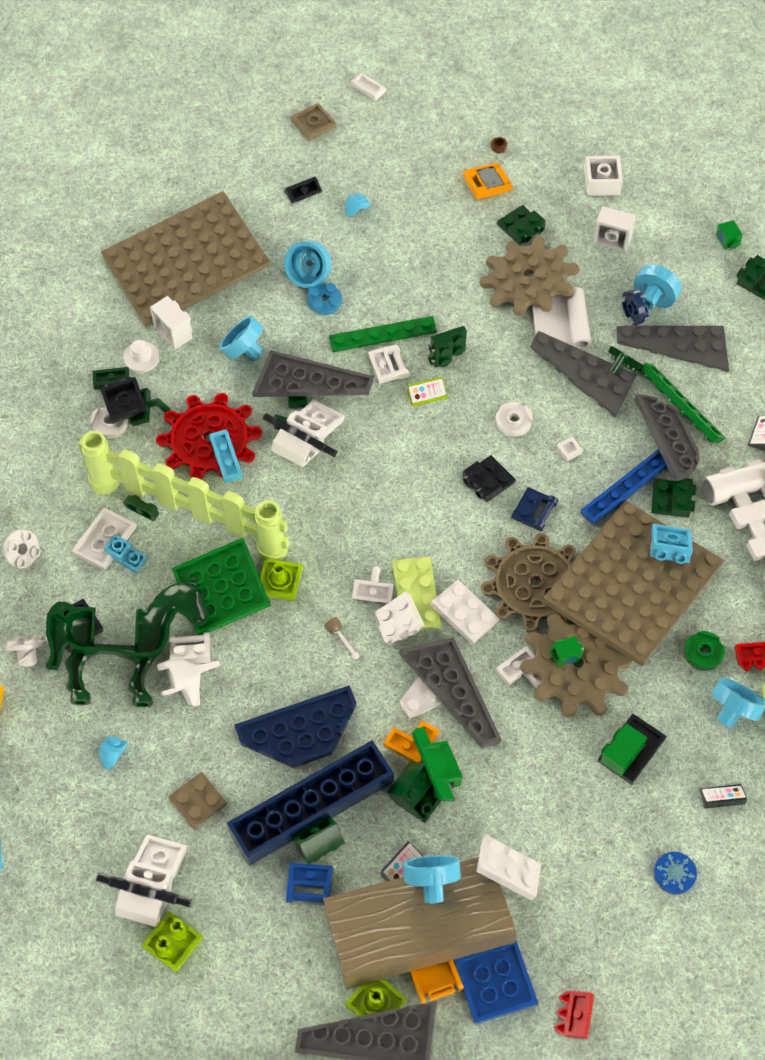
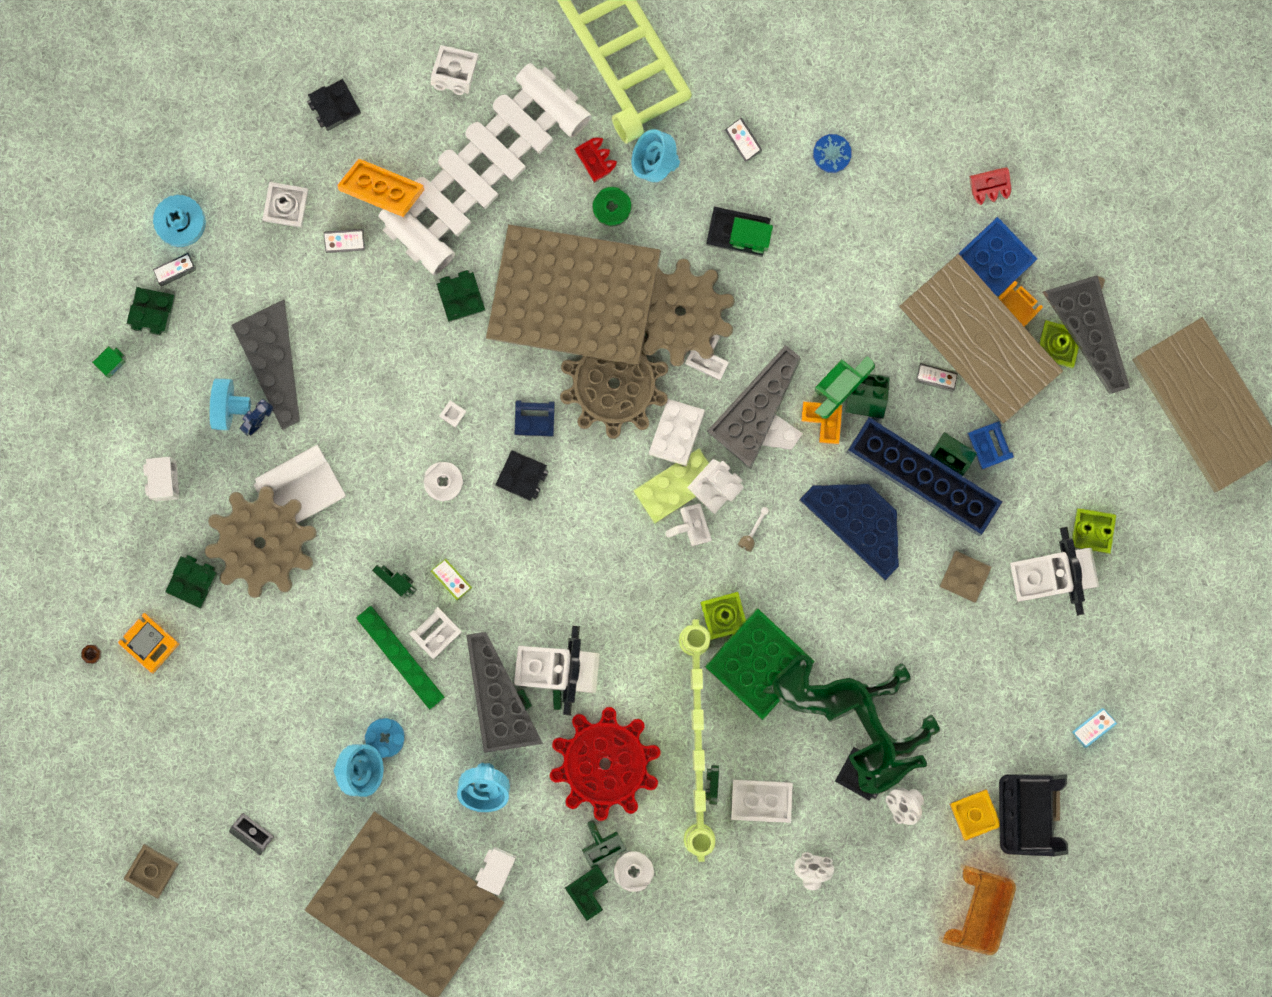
camera: 120 degrees left, 25 degrees up
(111, 750) = (959, 674): medium azure plate -> none
(123, 399) = (610, 865): black plate -> none
(124, 554) = (769, 770): medium azure slope -> none
(141, 356) = (544, 884): white plate -> none
(185, 678) = (864, 644): white piece -> none
(193, 653) = (838, 656): white plate -> none
(225, 456) = (624, 732): medium azure plate -> none
(354, 203) = (246, 766): medium azure plate -> none
(368, 86) = (71, 837): white plate -> none
(432, 874) = (956, 334): medium azure piece -> none
(509, 867) = (902, 285): white plate -> none
(566, 651) = (682, 319): green brick -> none
(586, 371) = (354, 426): dark grey wing -> none
(603, 175) = (90, 522): white brick -> none
(621, 357) = (321, 401): dark green plate -> none
(624, 488) = (468, 342): blue plate -> none
(670, 436) = (396, 323): dark grey plate -> none
(671, 543) = (523, 273): medium azure plate -> none
(675, 397) = (347, 328): green plate -> none

